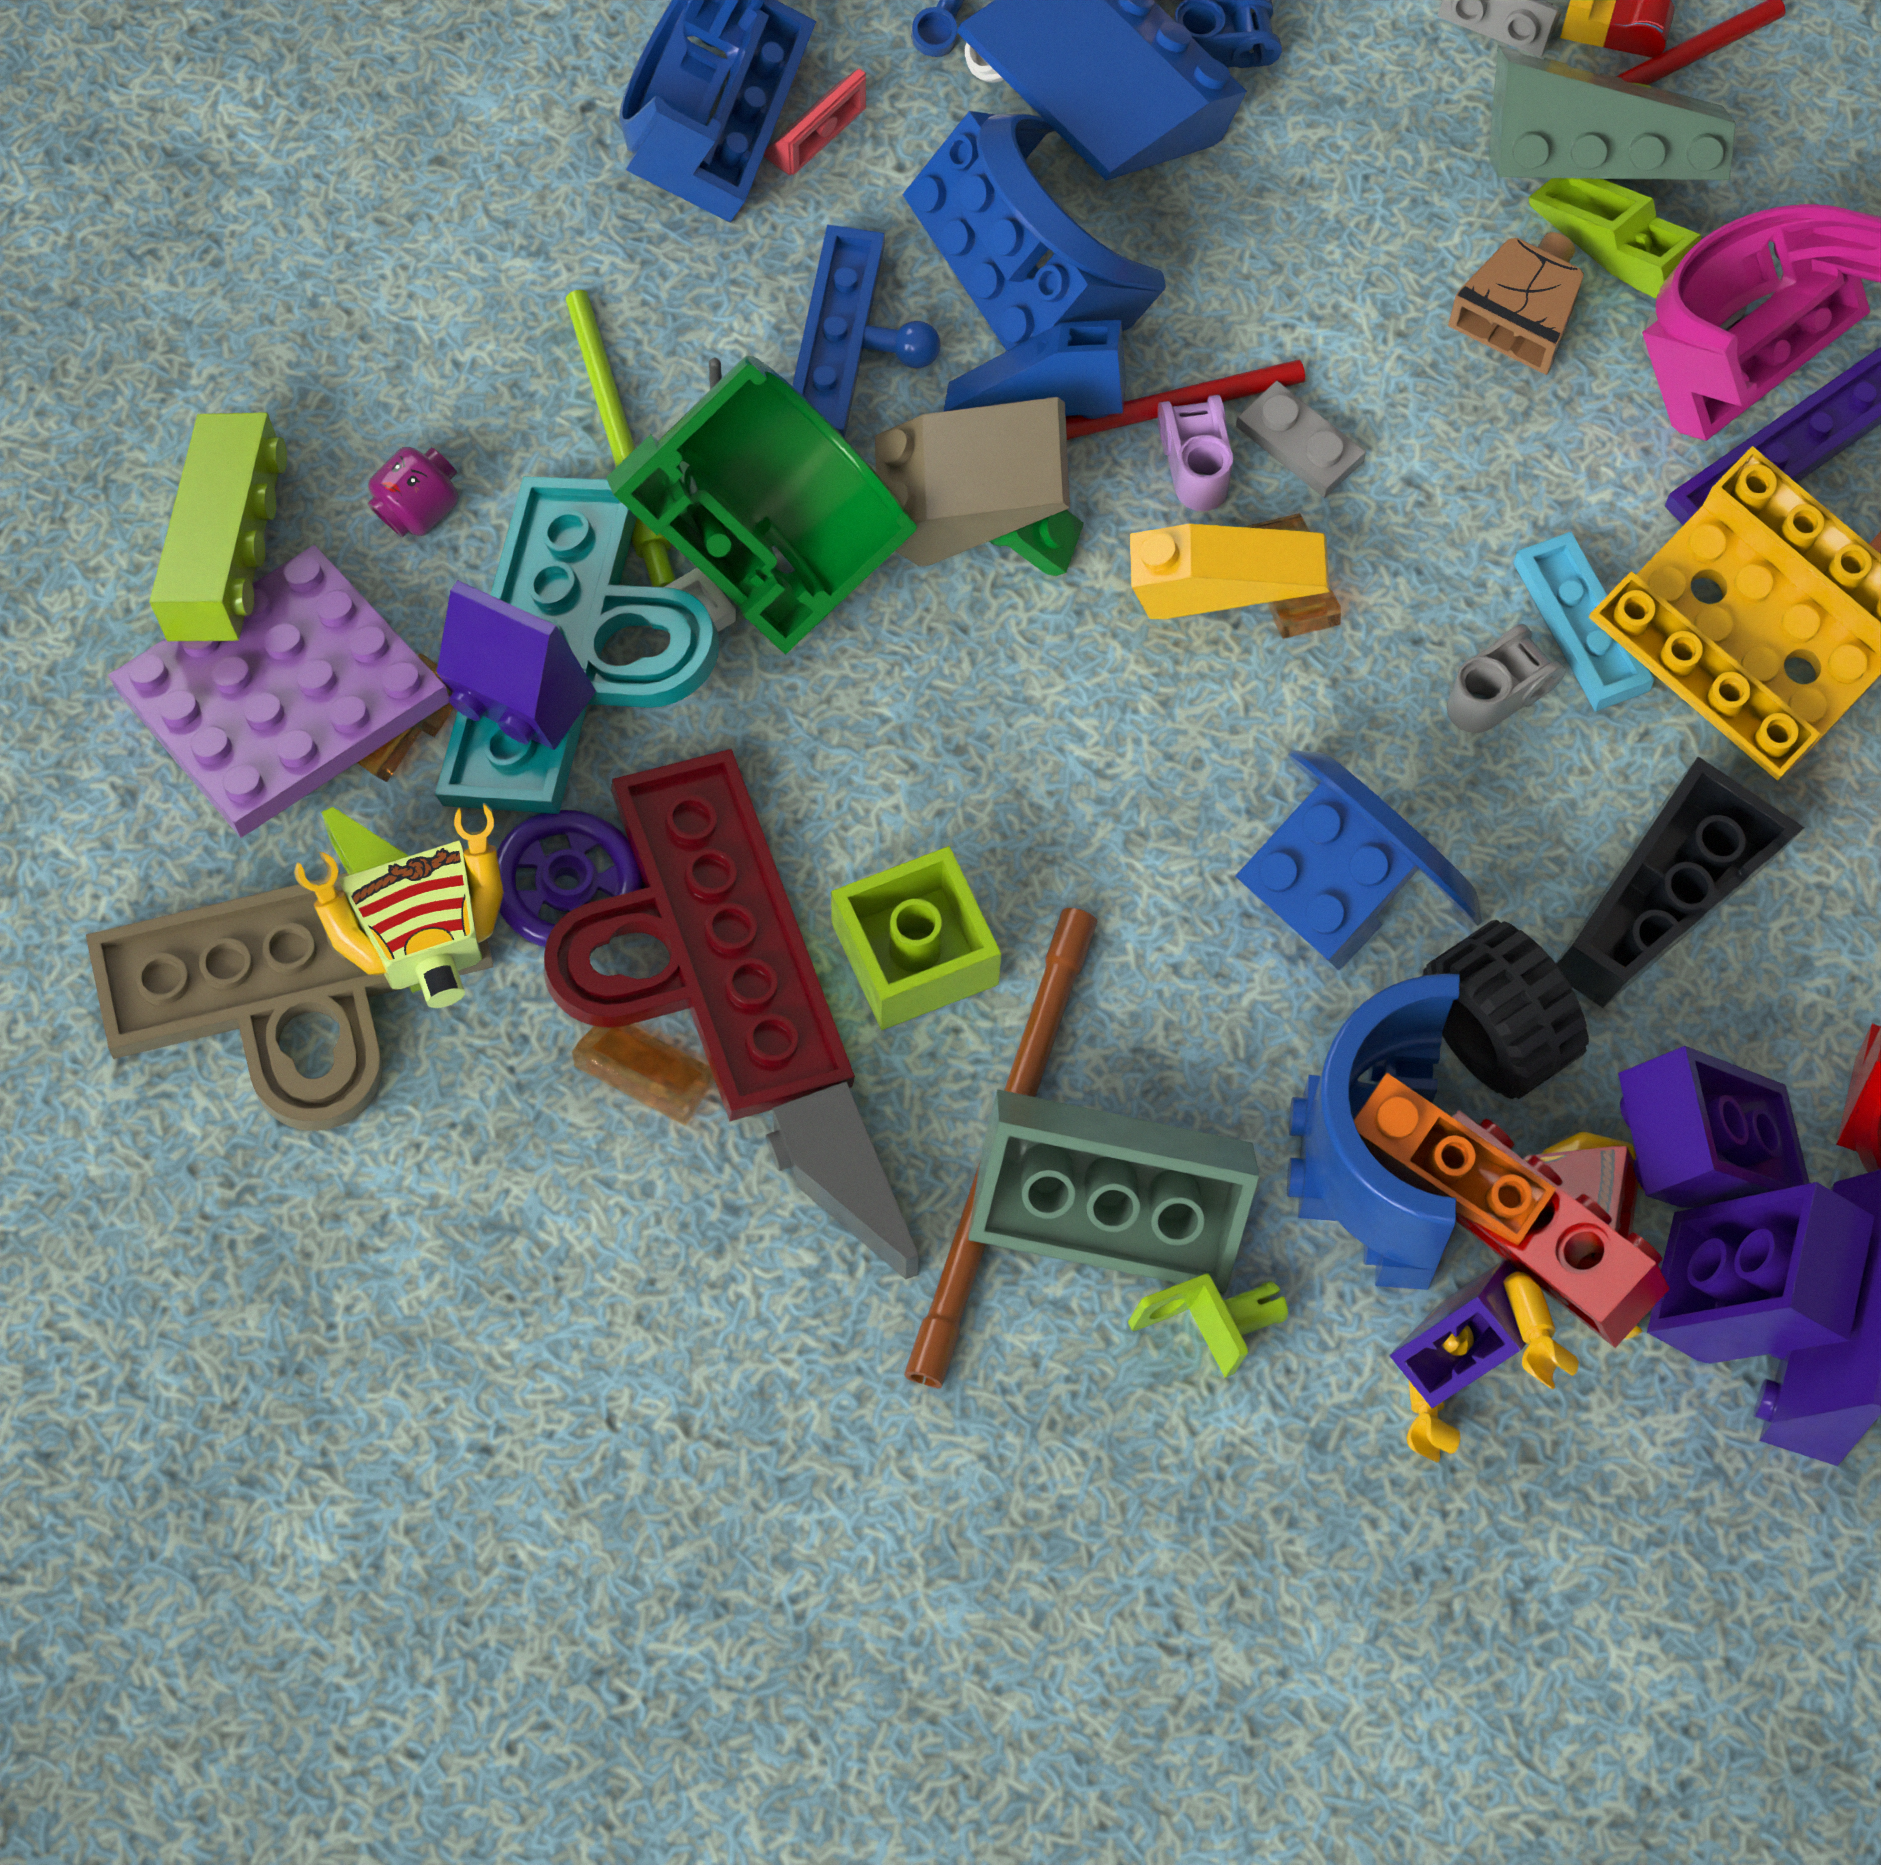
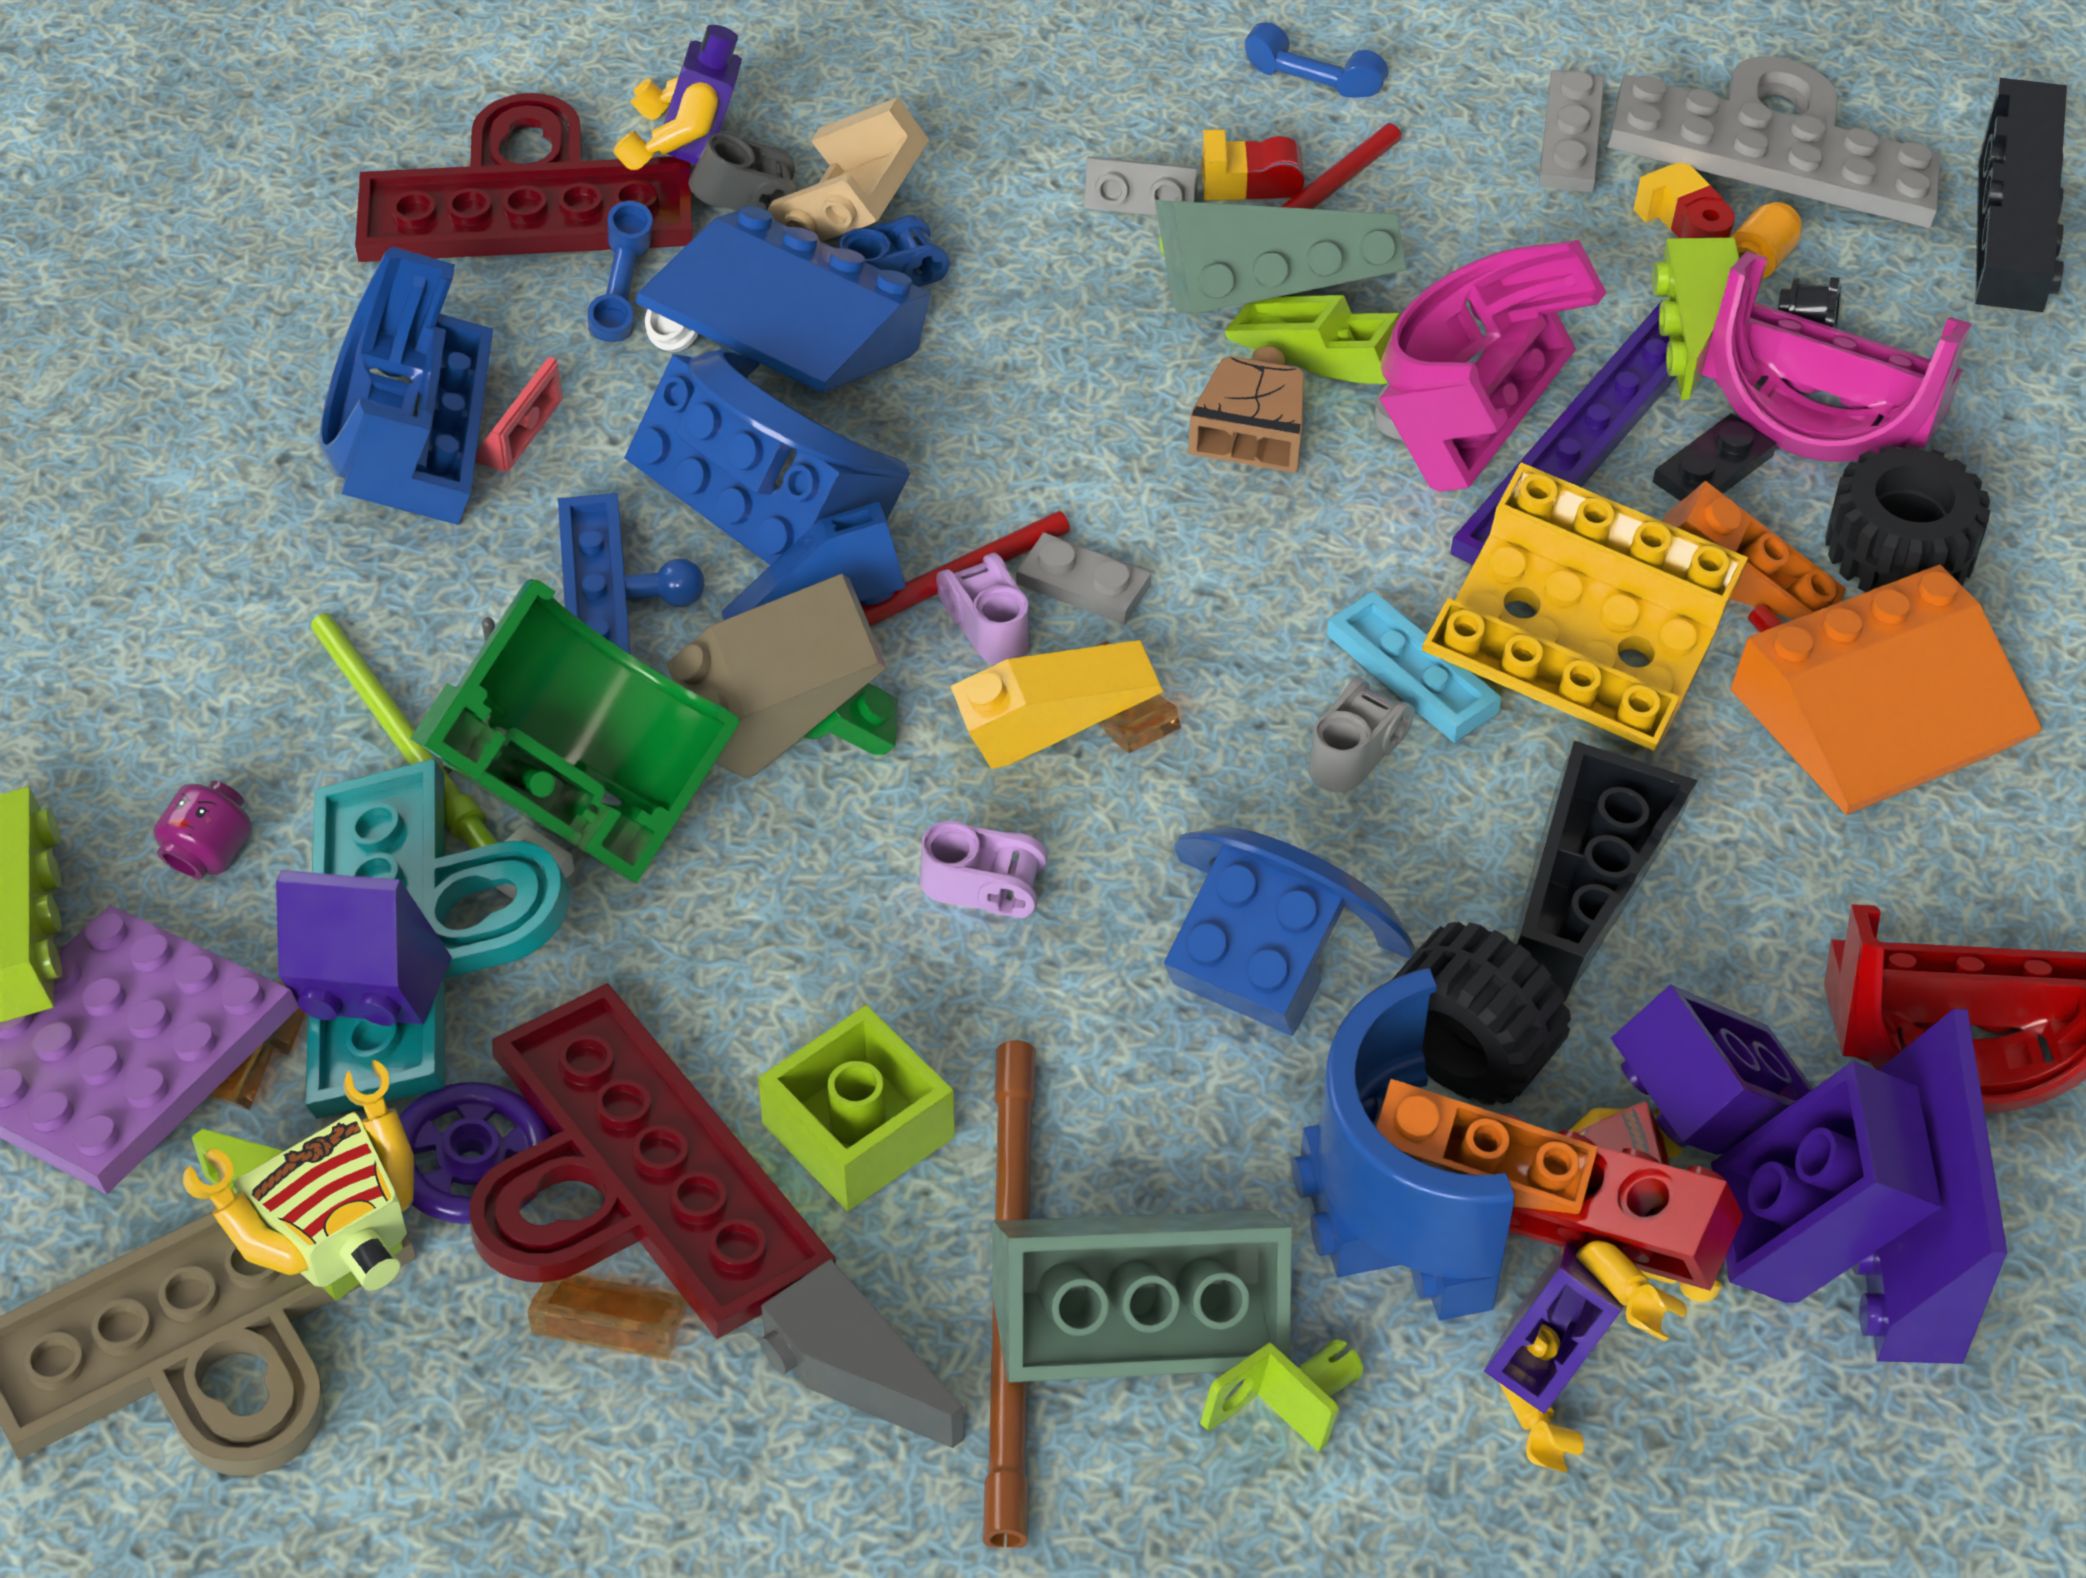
camera: 15 degrees left, 15 degrees down
(1108, 727) = (977, 869): none -> lavender piece

